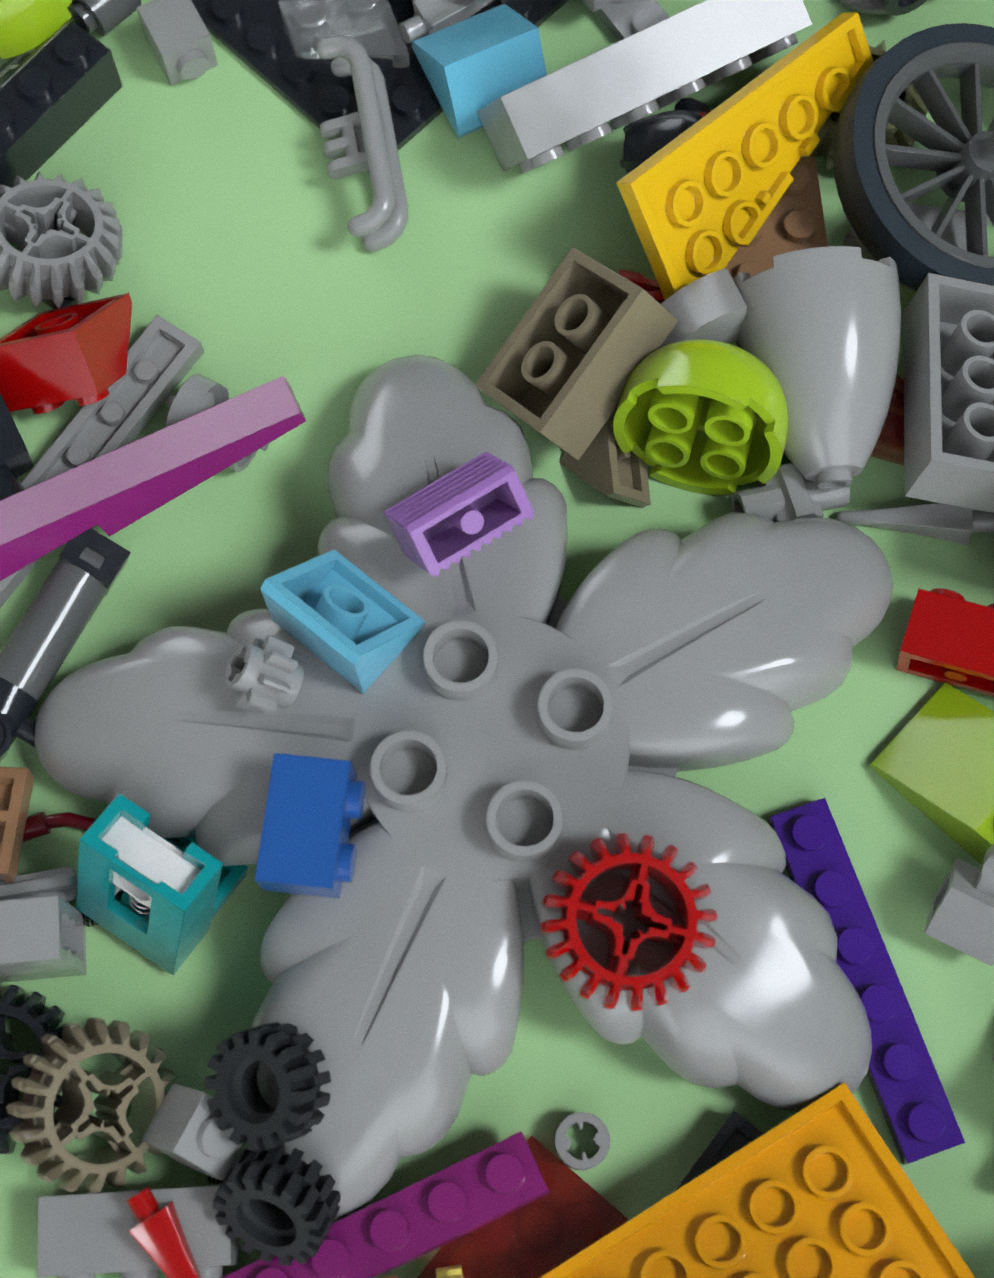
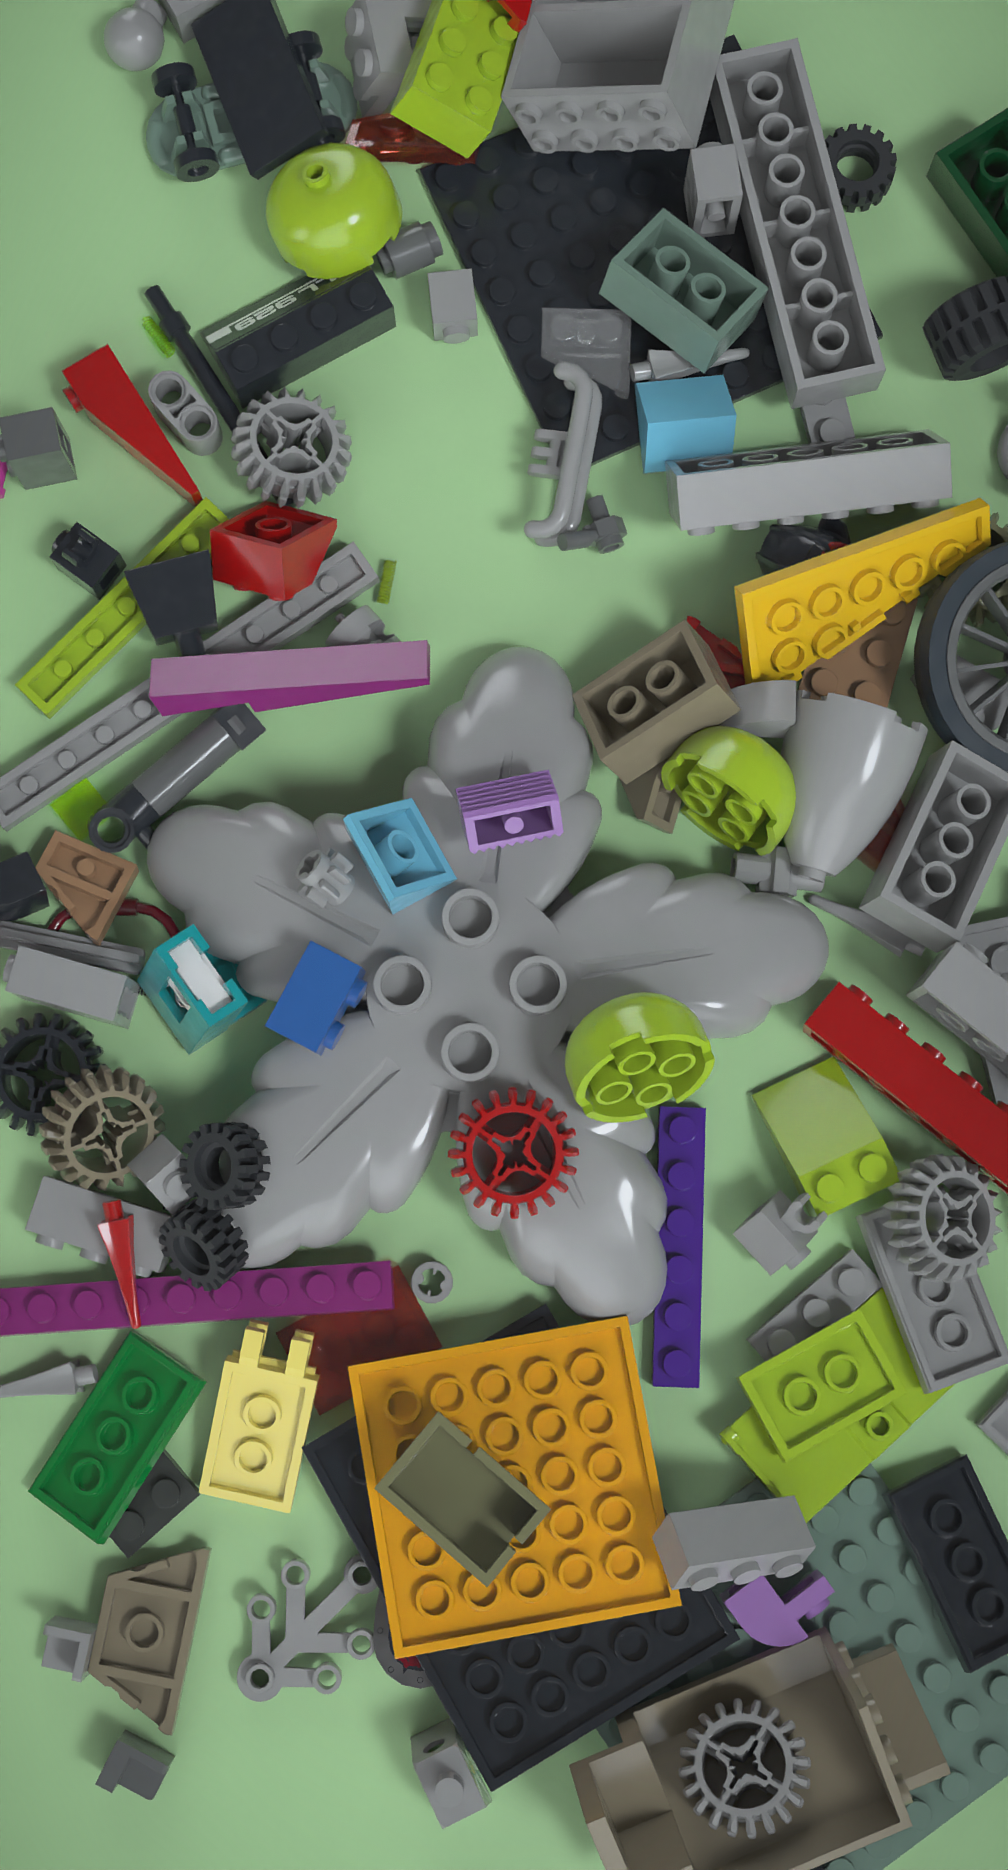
camera: 20 degrees right, 10 degrees up
(209, 341) = (382, 596): none -> lime leg
(439, 209) = (604, 532): none -> dark grey piece
(732, 743) = (636, 1056): none -> lime cylinder

